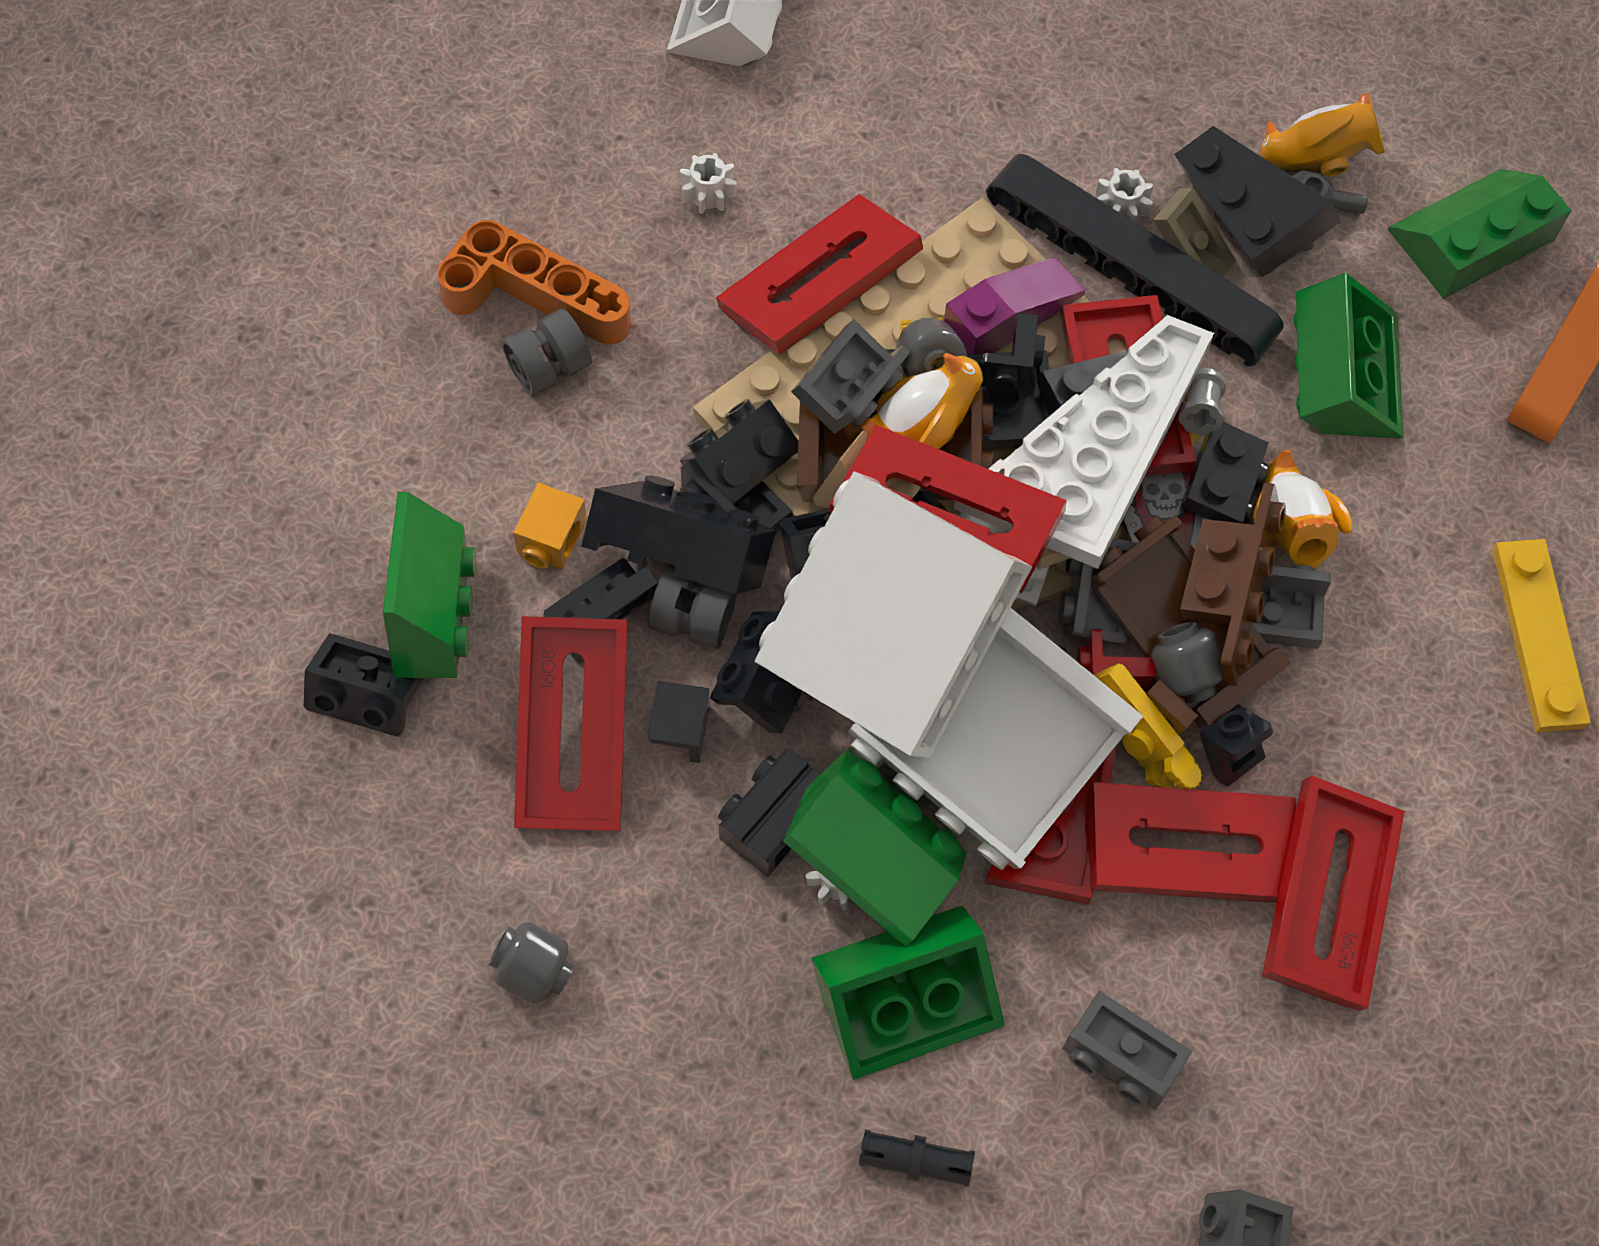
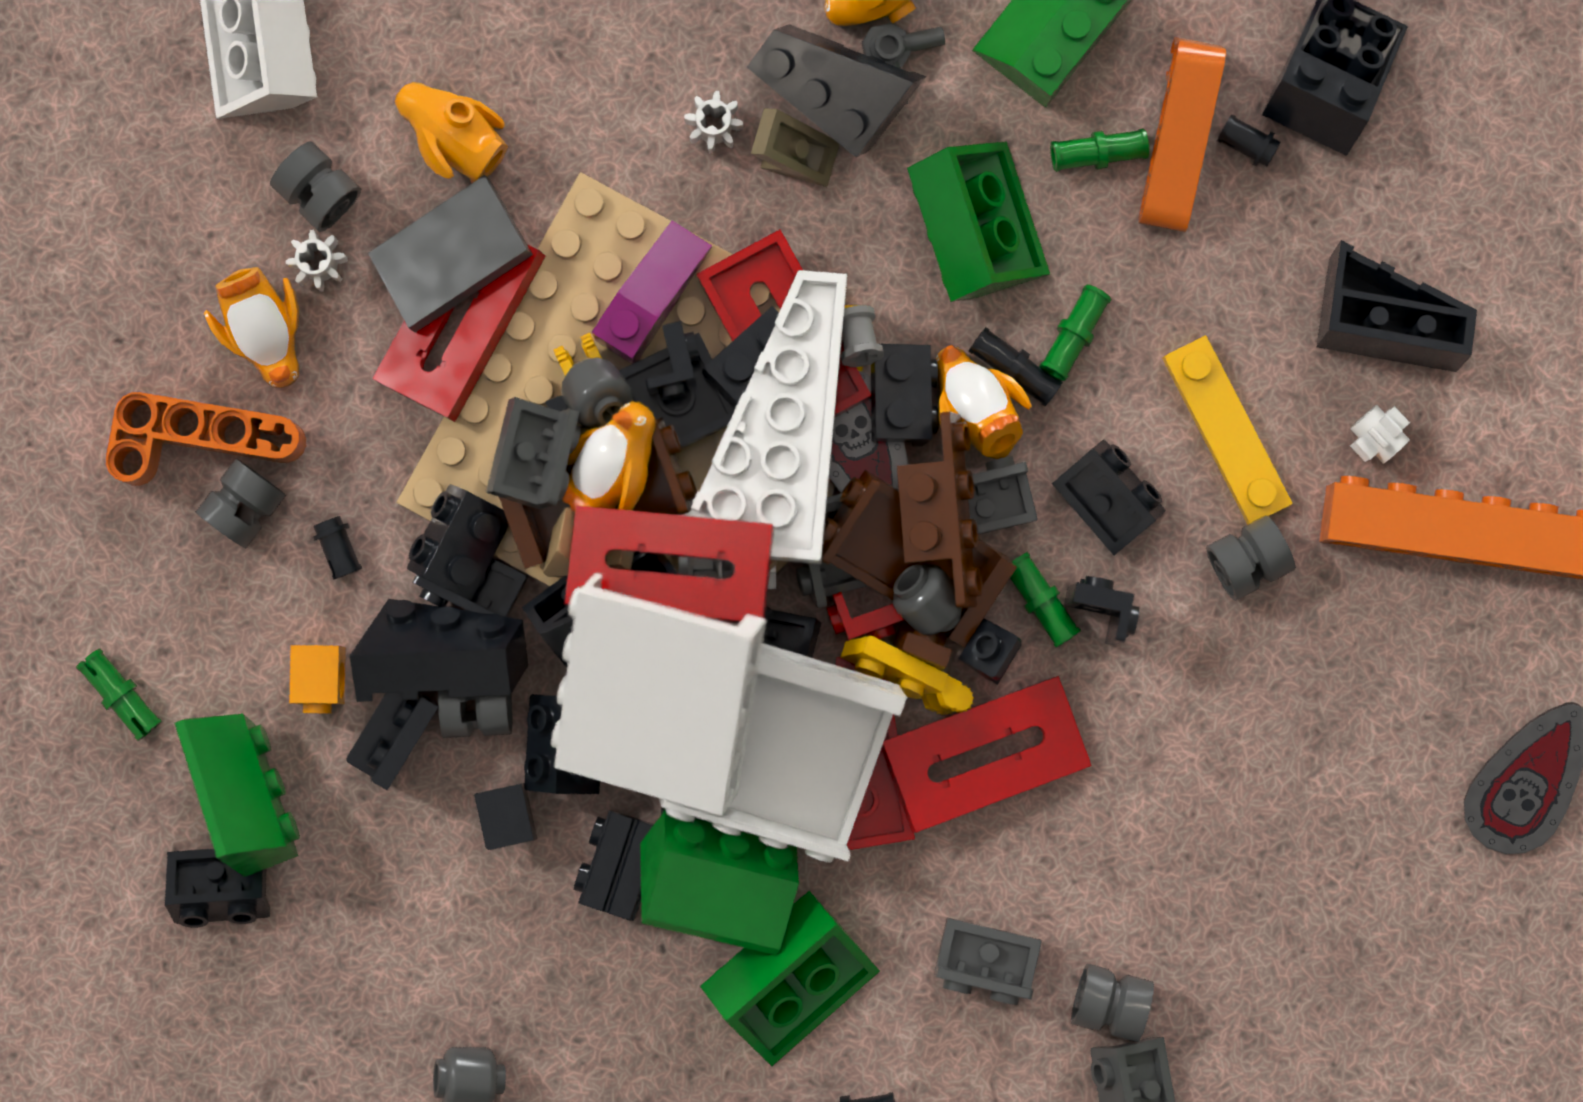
camera: 20 degrees left, 20 degrees up
(351, 477) = (118, 694): none -> green pin
(538, 792) = (412, 926): red piece -> none
(619, 425) = (337, 547): none -> black pin
(632, 210) = (259, 324): none -> animal
(733, 122) = (308, 180): none -> dark grey wheel
(834, 216) = (449, 254): none -> dark grey tile
(880, 123) = (452, 131): none -> light orange animal
(1135, 257) = (745, 183): black beam -> none
(1249, 1145) = (1118, 1004): none -> dark grey wheel
(1301, 721) = (1043, 601): none -> green pin
(1363, 898) = (1143, 746): red piece -> none
(1364, 524) = (1015, 364): none -> black pin
(1368, 733) = (1098, 596): none -> black bracket
(1400, 648) = (1110, 496): none -> black bracket
(1413, 492) = (1075, 332): none -> green pin
(1487, 345) = (1099, 150): none -> green pin
(1544, 752) = (1251, 557): none -> dark grey wheel

